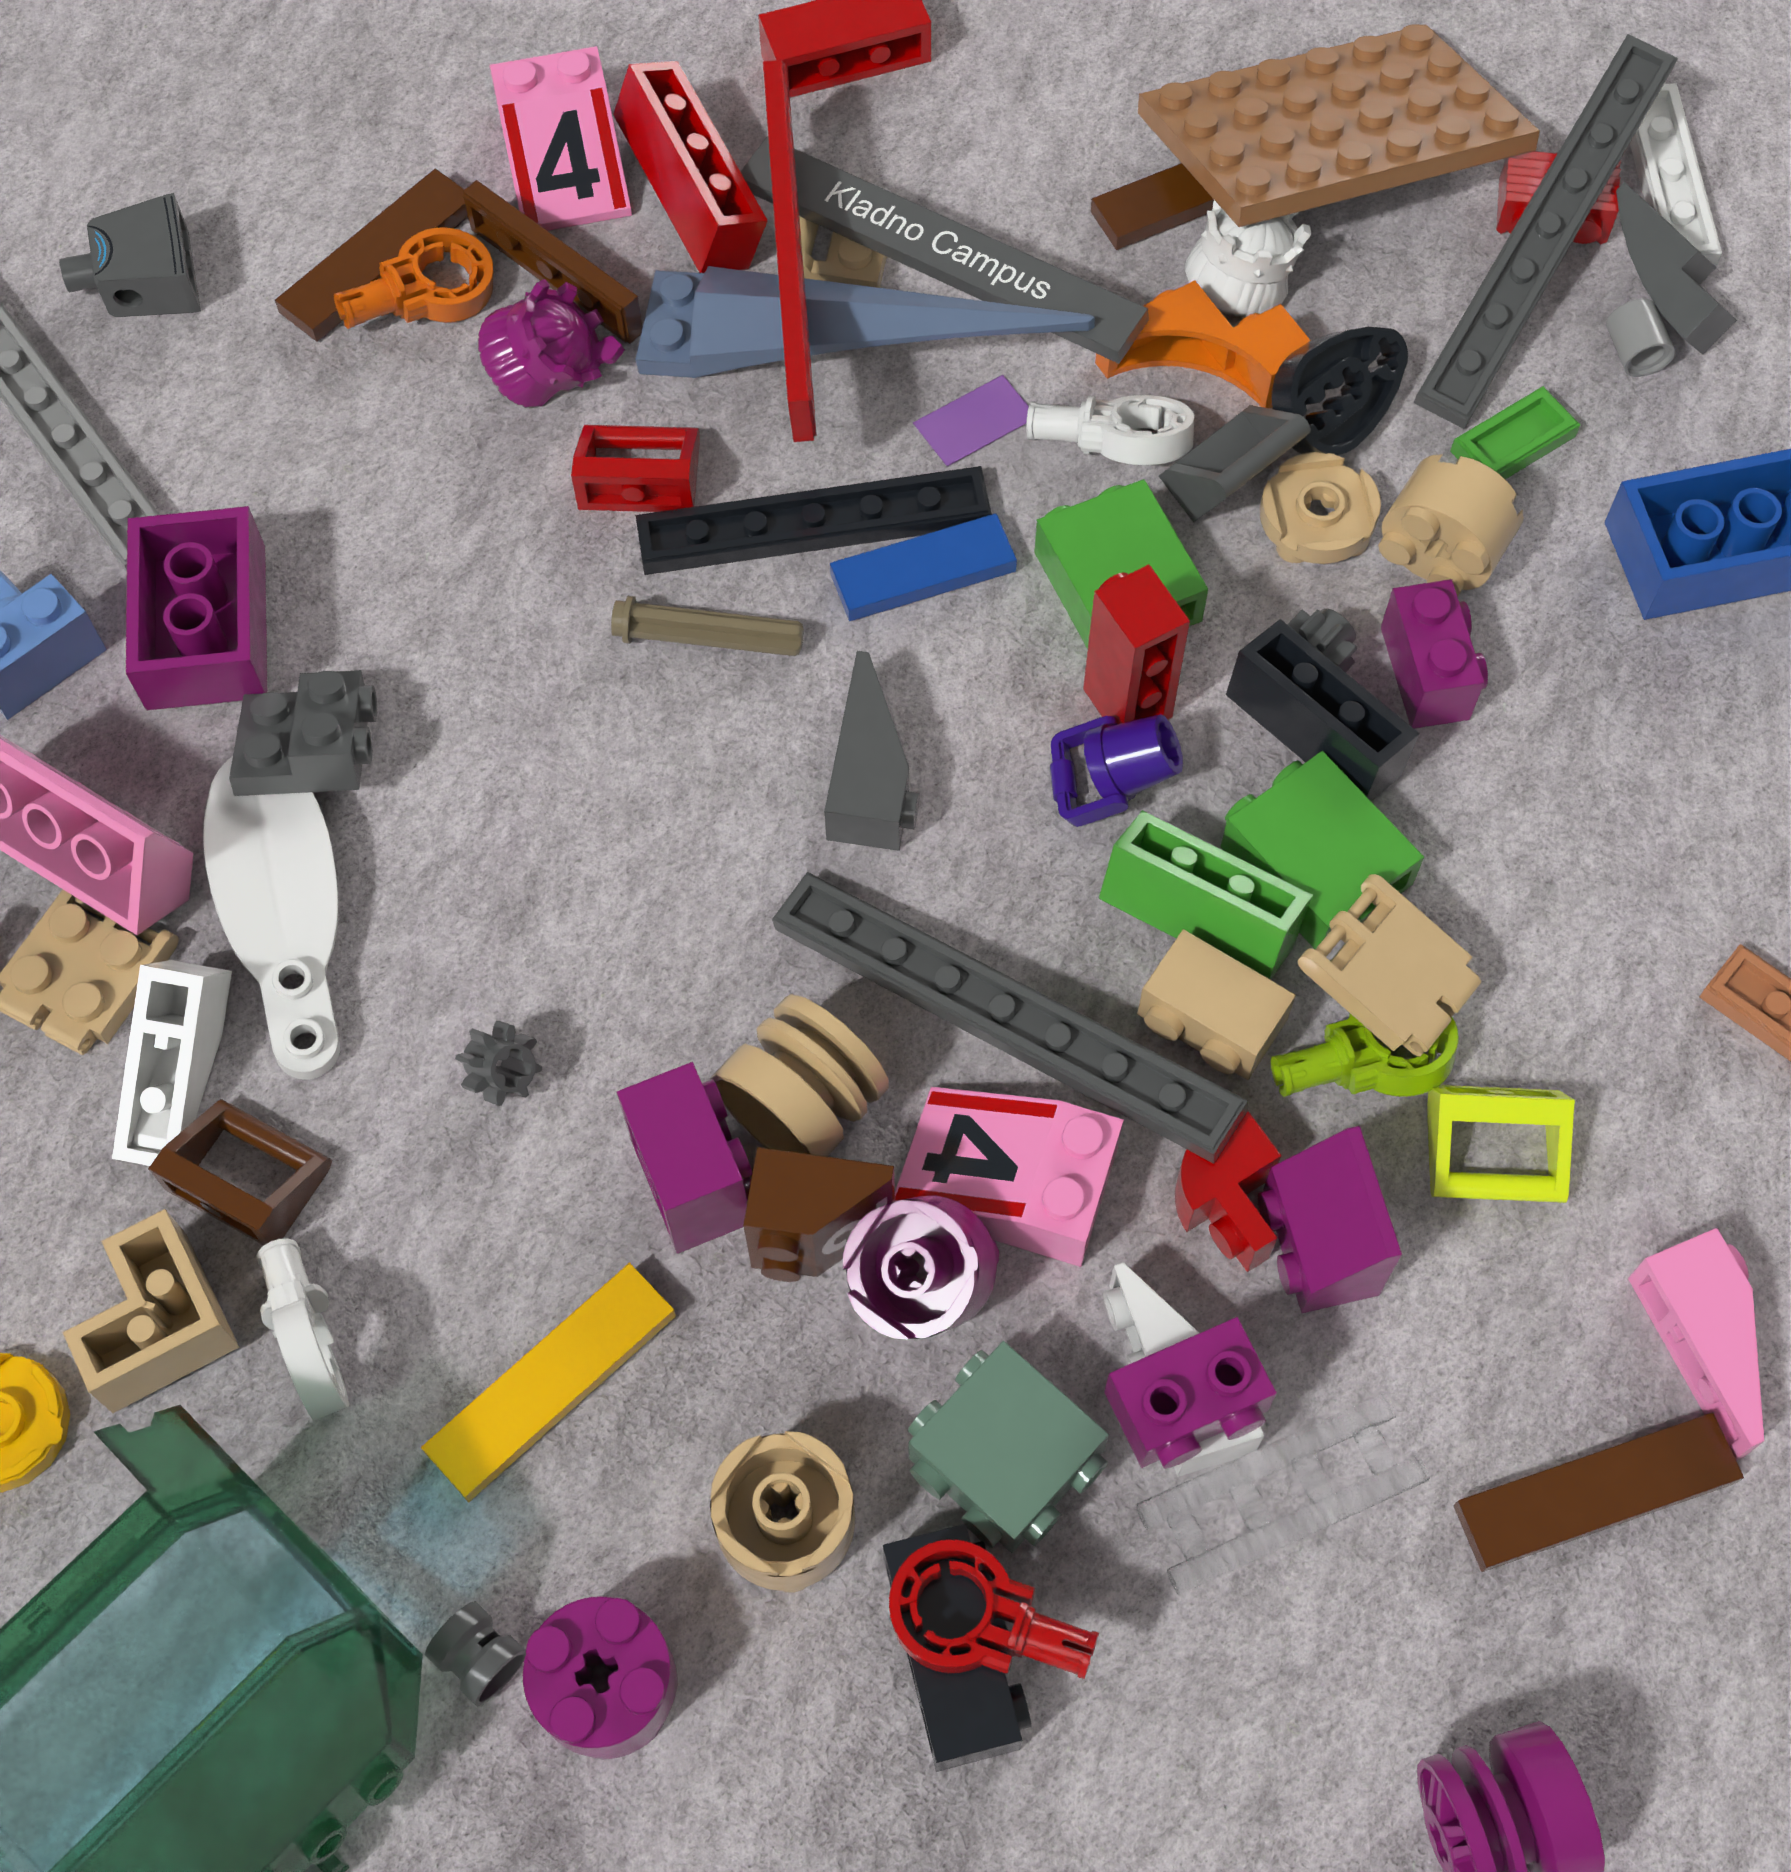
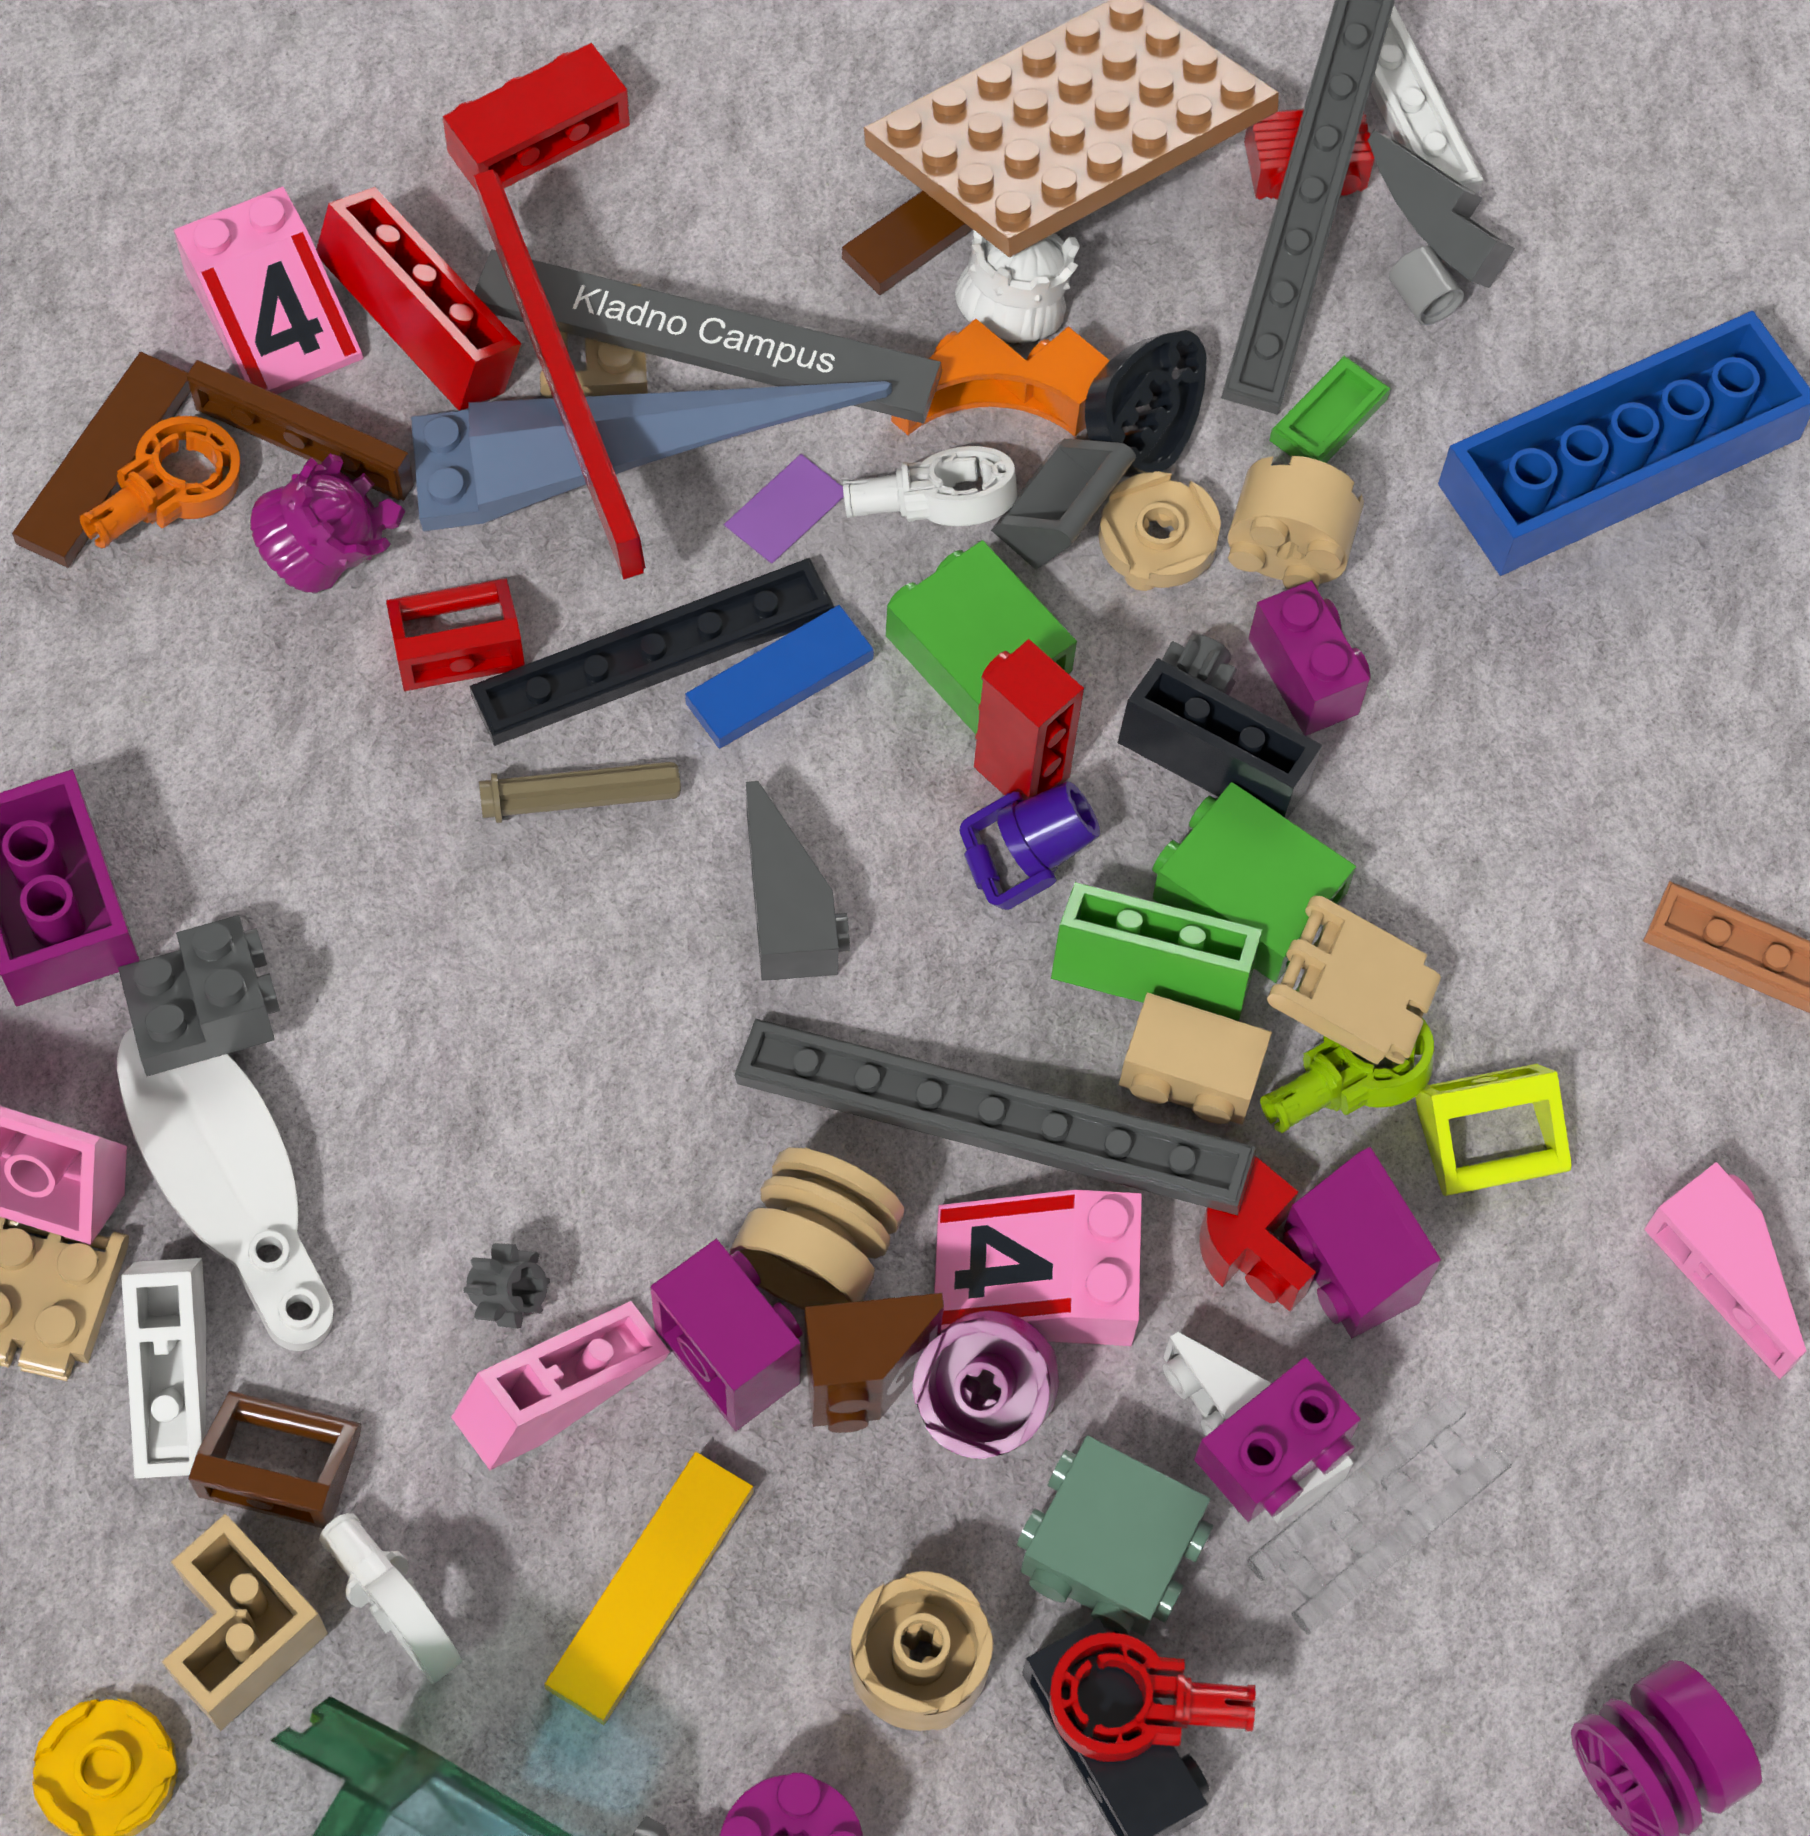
camera: 20 degrees left, 0 degrees up
(518, 1164) = (555, 1383): none -> bright pink slope
(1597, 1492) = (1666, 1438): reddish brown tile -> none

